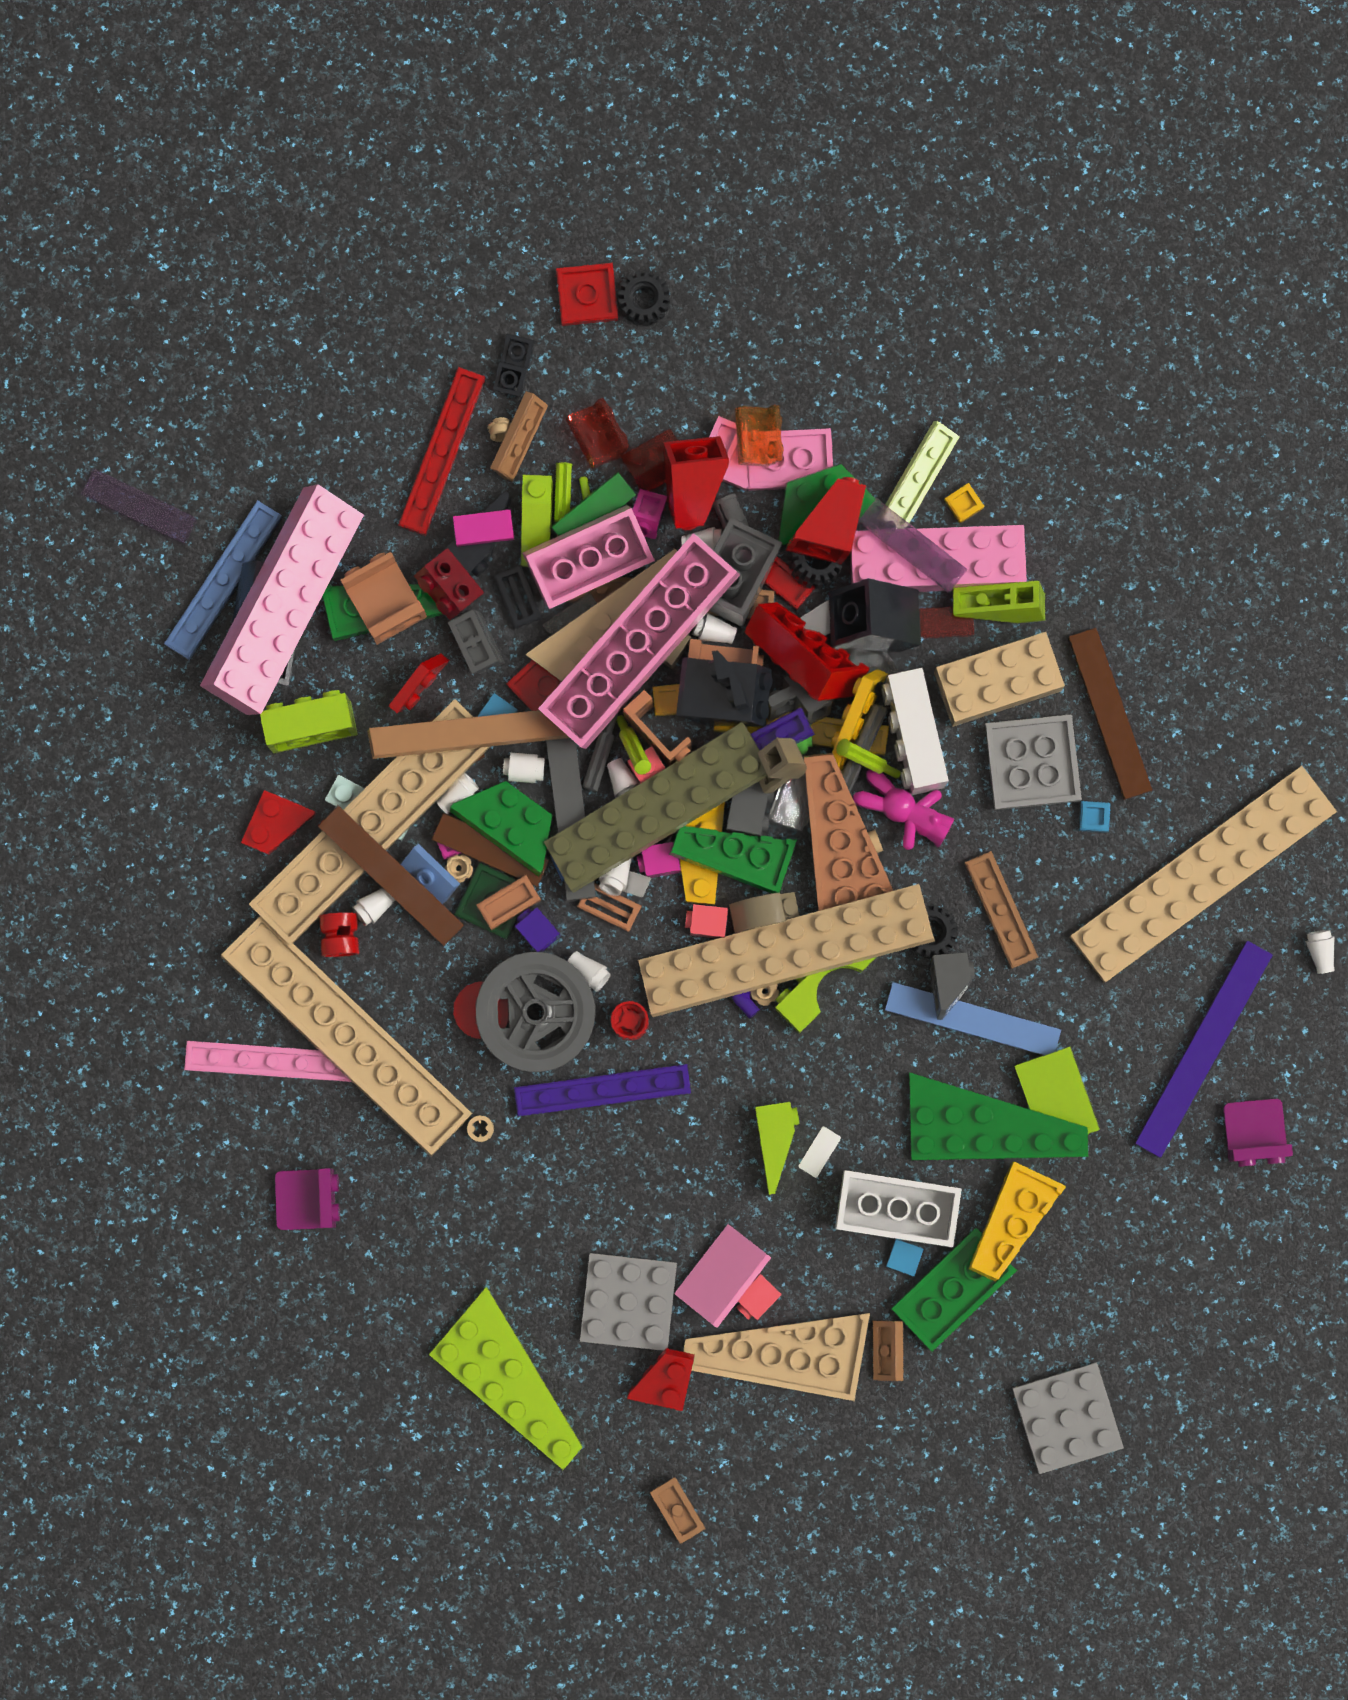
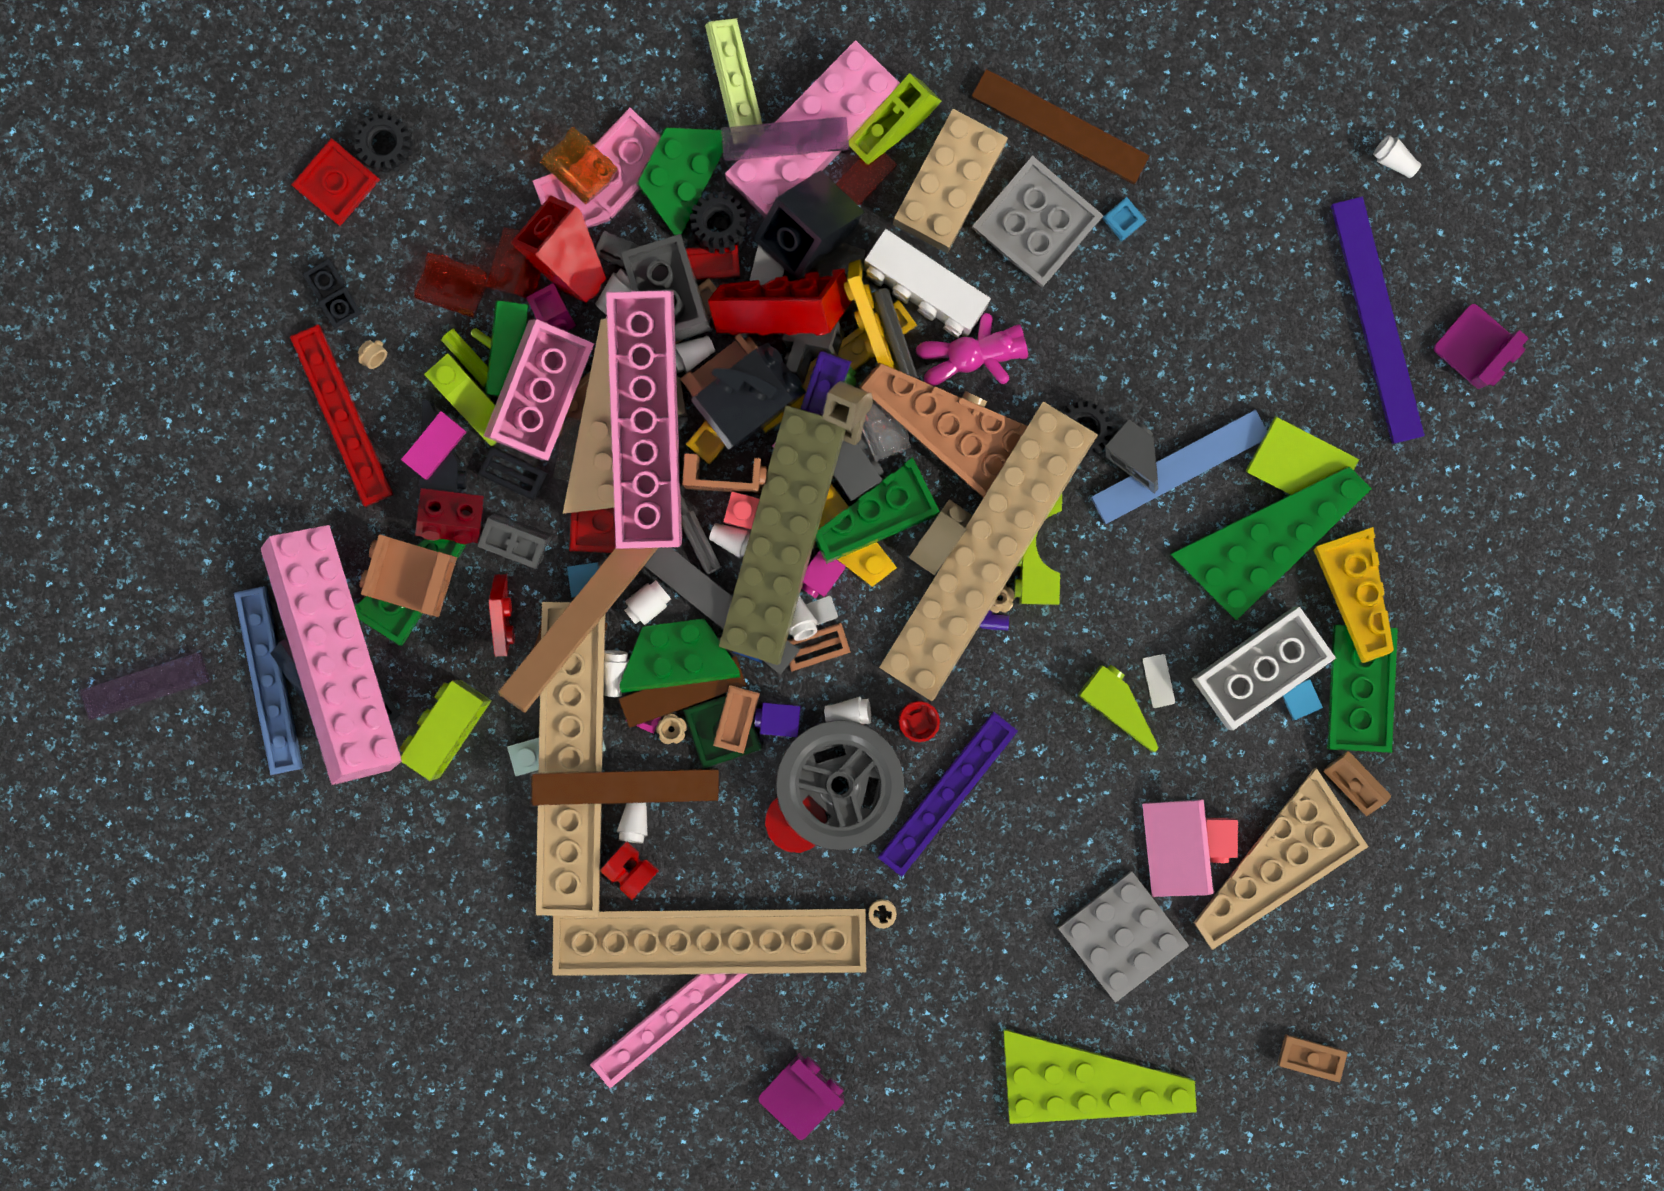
camera: 50 degrees left, 5 degrees up
(274, 822) = (493, 831): red wing -> none
(430, 873) = (653, 755): medium blue plate -> none
(519, 436) = (391, 346): medium nougat tile -> none
(633, 747) = (718, 506): lime axle -> none
(665, 1381) = (1210, 970): red wing -> none
(707, 921) = (904, 586): coral brick -> none
(832, 524) = (706, 181): red slope -> none
(865, 758) = (907, 342): lime axle -> none
(964, 503) = (790, 68): yellow tile -> none
(1001, 910) = (1121, 360): medium nougat tile -> none
(1067, 1418) = (1540, 703): light grey plate -> none
(1203, 874) = (1249, 184): tan plate -> none

